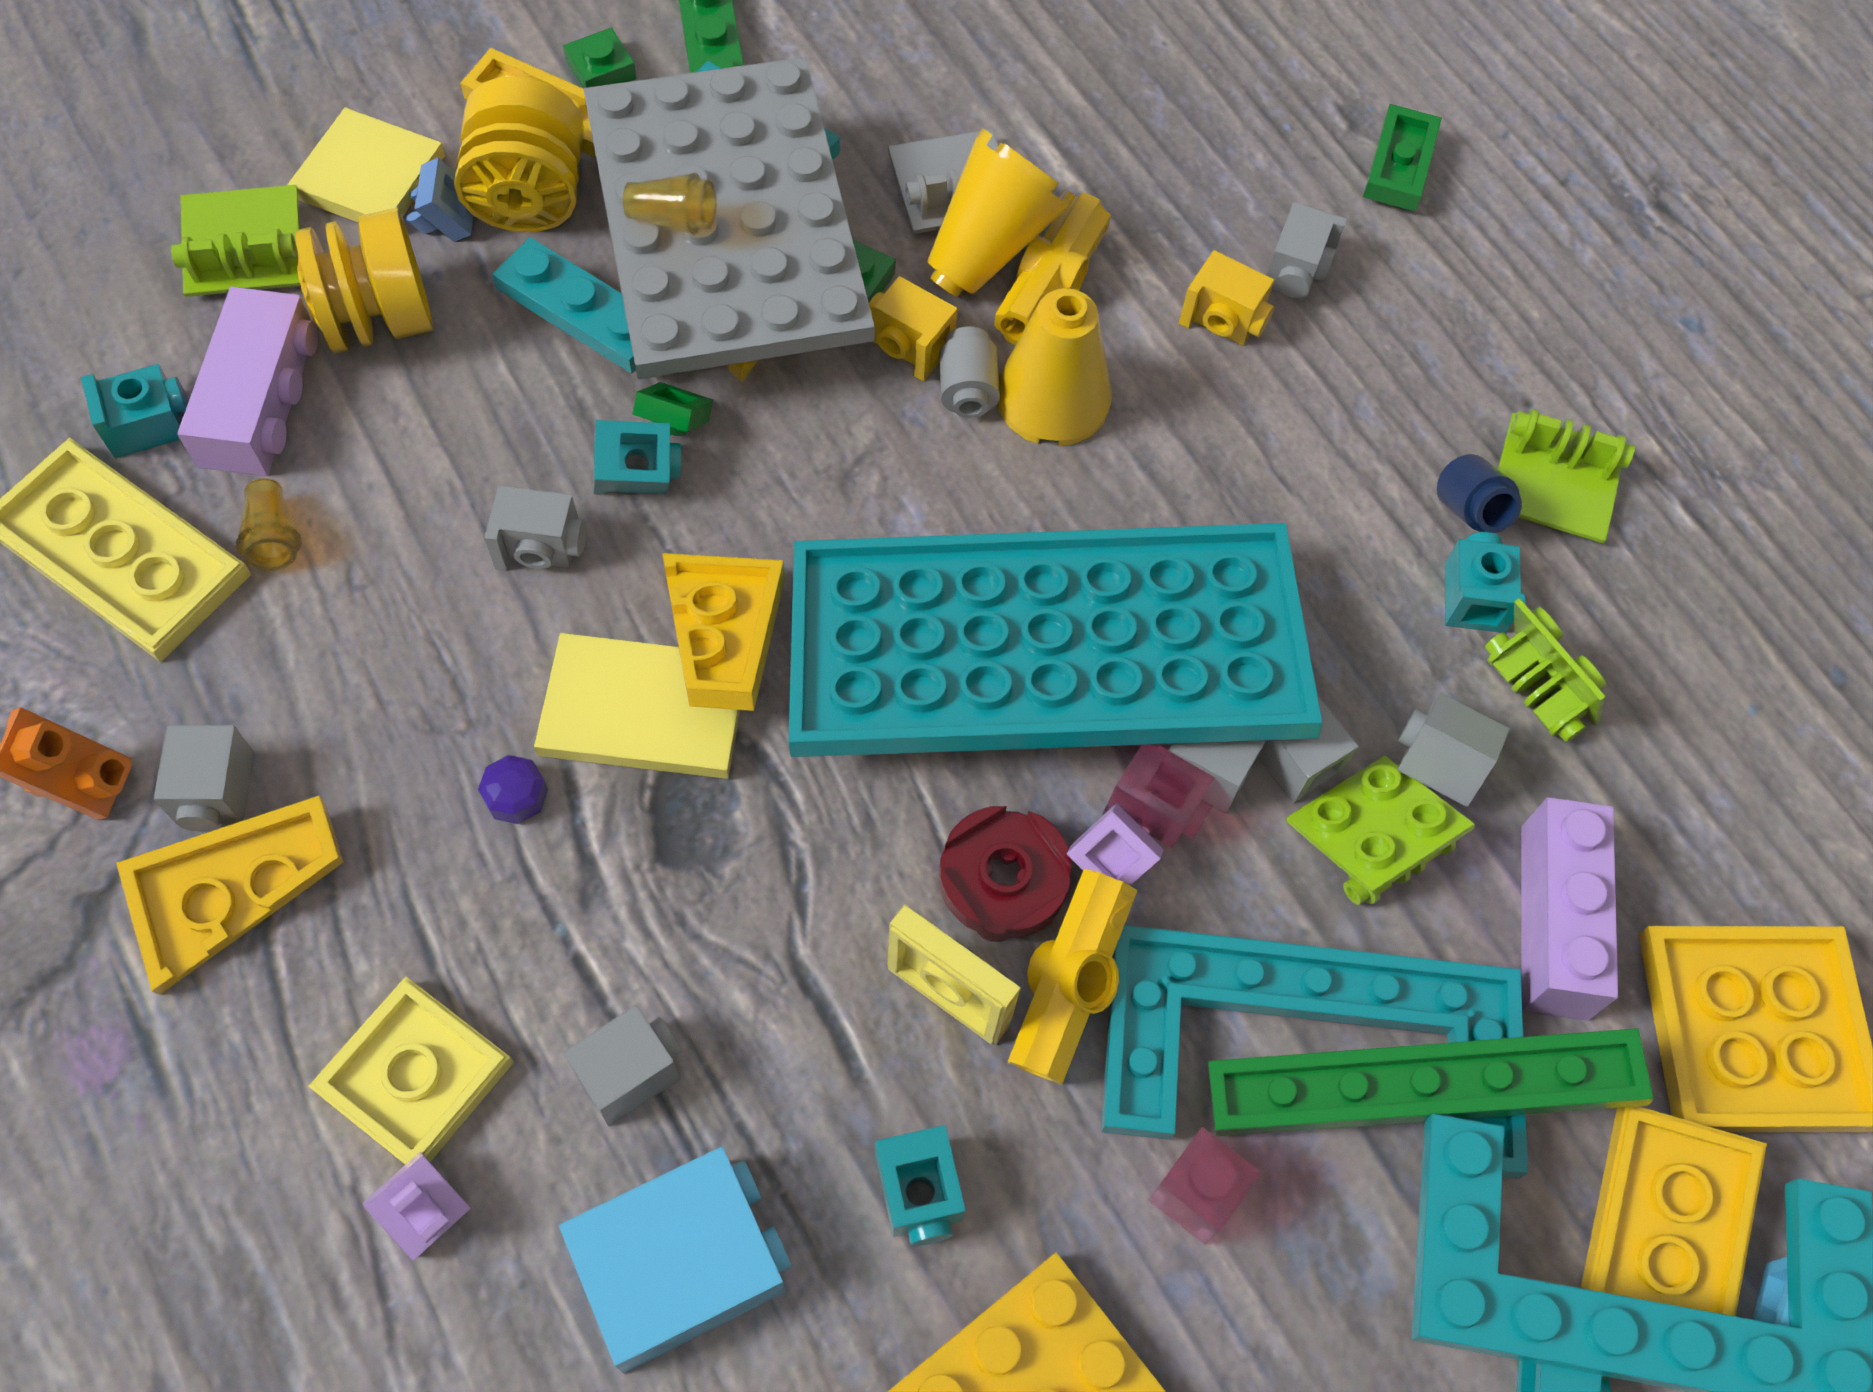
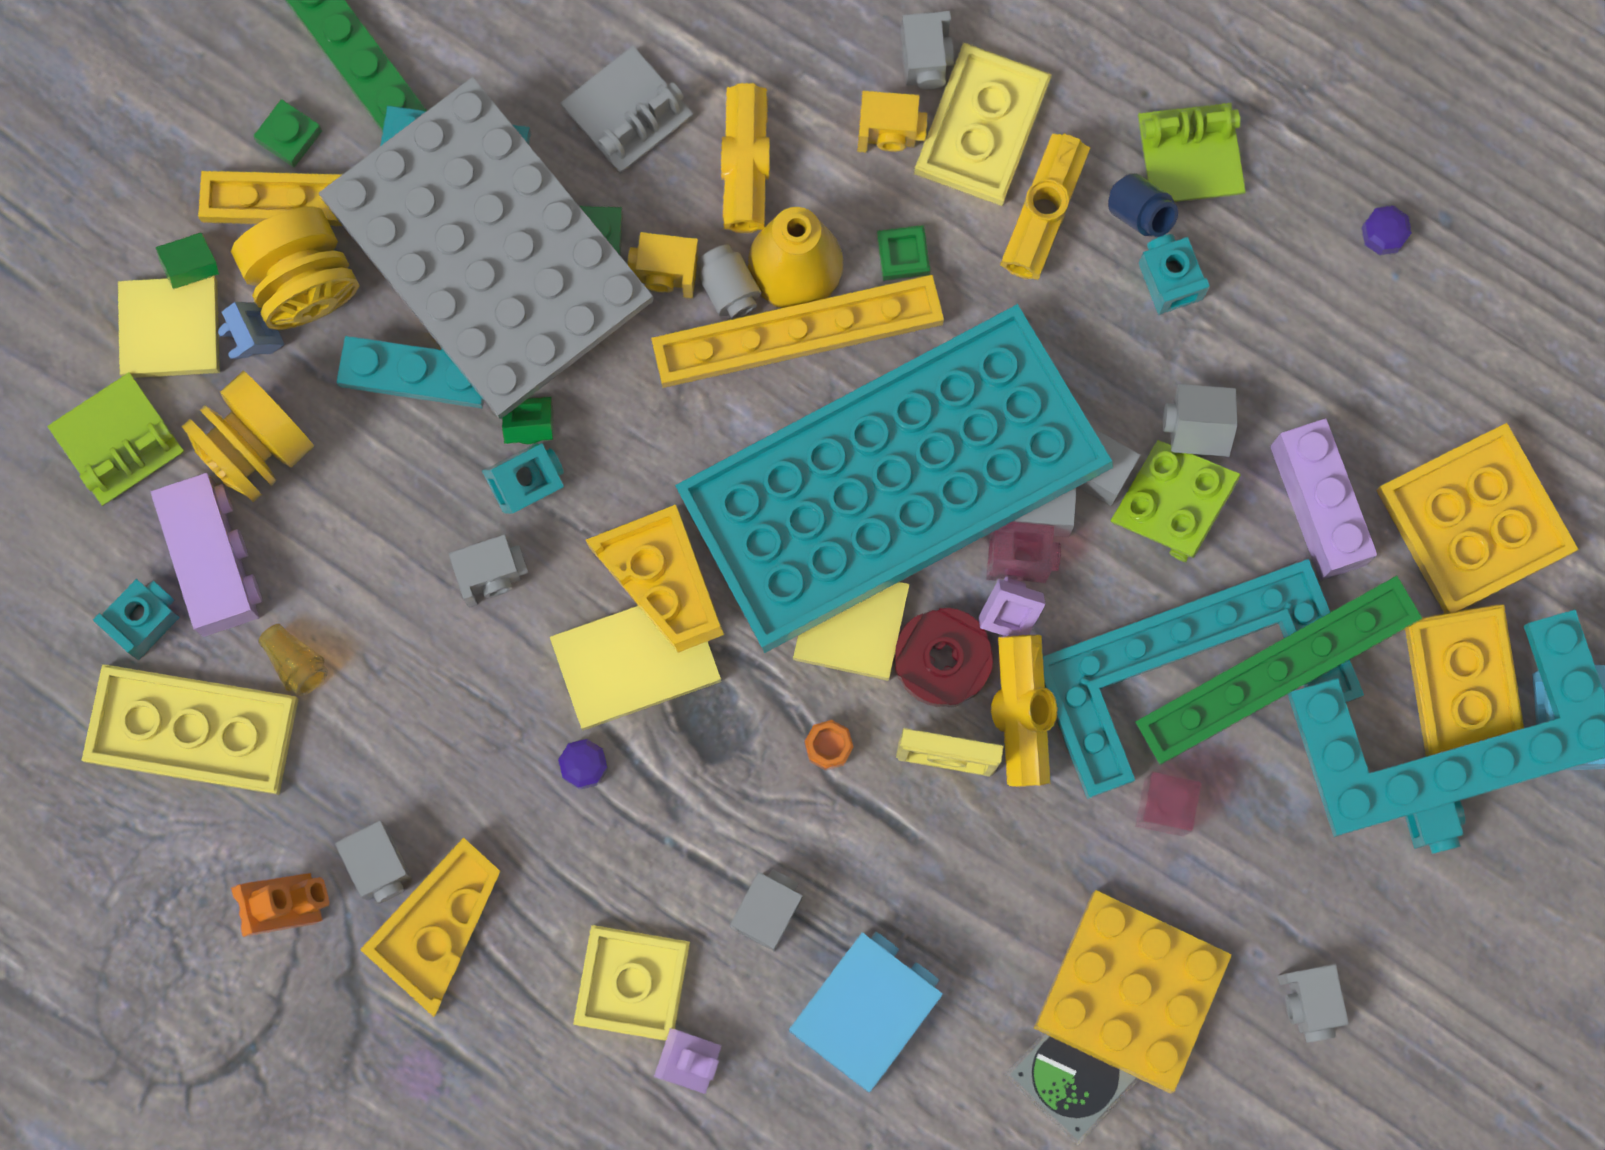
camera: 25 degrees left, 15 degrees up
(423, 117) = (187, 260): none -> green tile
(673, 202) = (457, 274): clear yellow cone -> none
(812, 906) = (828, 745): none -> orange tile
(915, 796) = (859, 638): none -> light yellow tile
(927, 1159) = (987, 873): teal brick -> none
(992, 216) = (685, 141): yellow cone -> none
(1020, 453) = (797, 331): none -> yellow plate
(1178, 434) = (903, 253): none -> green tile
(1329, 353) = (982, 124): none -> light yellow tile
(1345, 467) = (1037, 231): none -> yellow piece
(1578, 679) = (1270, 331): lime hinge -> none
(1762, 652) = (1386, 230): none -> dark purple tile

